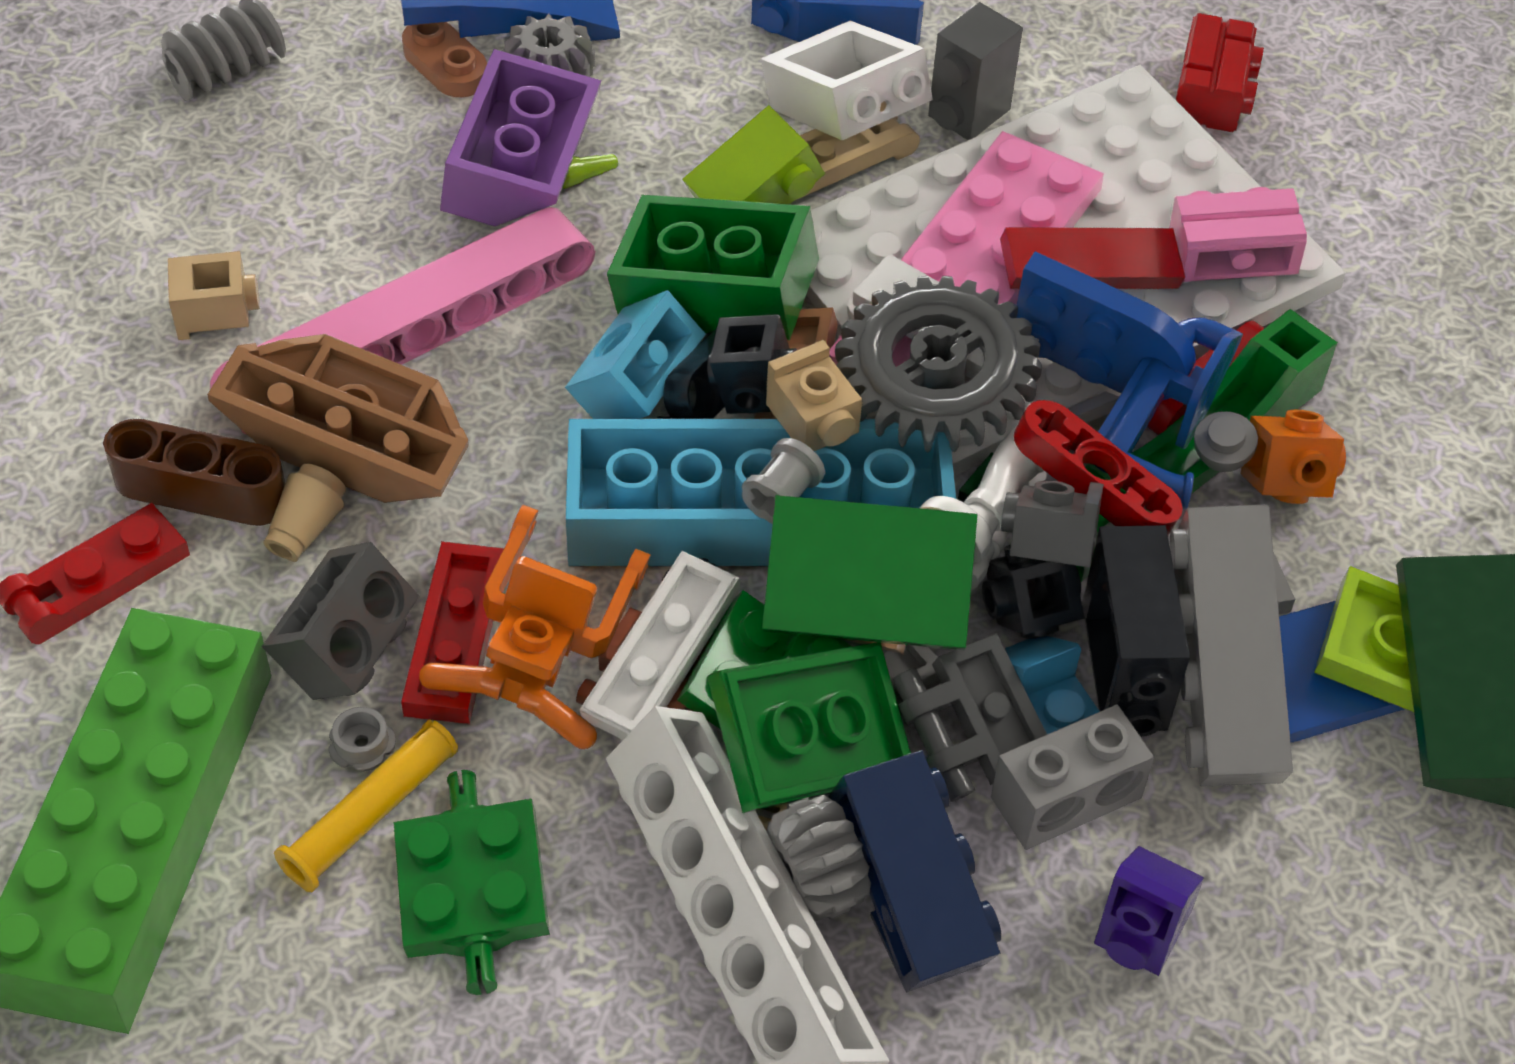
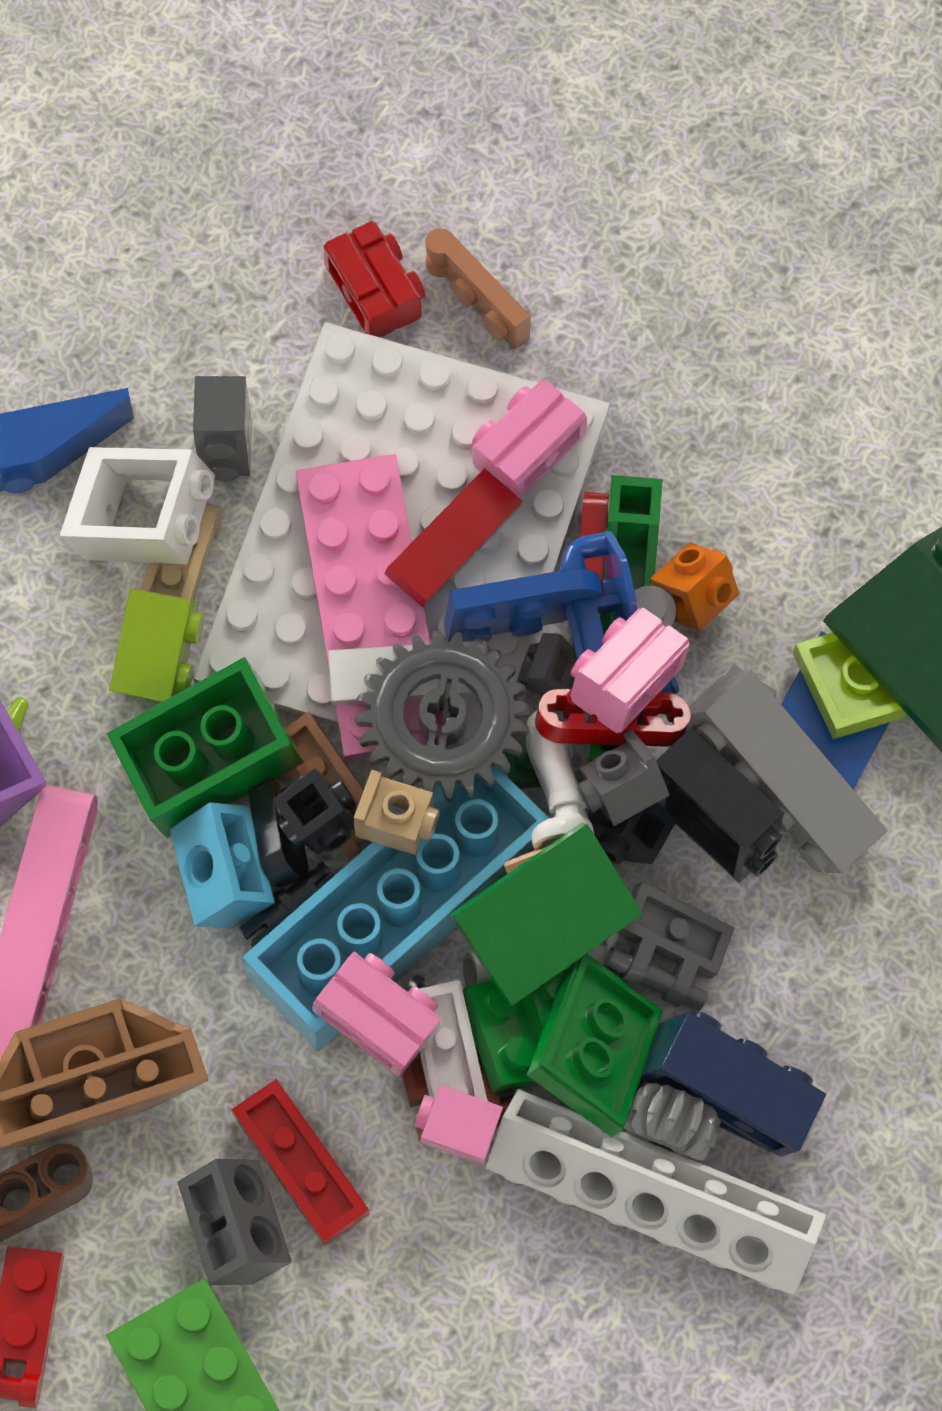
camera: 40 degrees left, 15 degrees up
(304, 510) = (114, 1164): tan cone -> none
(360, 724) = (318, 1271): light grey plate -> none
(366, 805) = (368, 1323): yellow pin -> none
(470, 880) = (475, 1313): green plate -> none
(540, 624) = (373, 1123): orange piece -> none
(609, 683) = (458, 1124): none -> bright pink brick
(631, 534) = (378, 1012): none -> bright pink brick
(788, 473) = (432, 891): light grey bush -> none
(1048, 676) = (693, 882): dark azure slope -> none
(1071, 776) = (759, 937): light grey brick -> none
(1146, 910) = (877, 989): dark purple slope -> none
(1147, 430) = (628, 669): none -> bright pink brick
(1305, 131) = (477, 287): none -> nougat plate

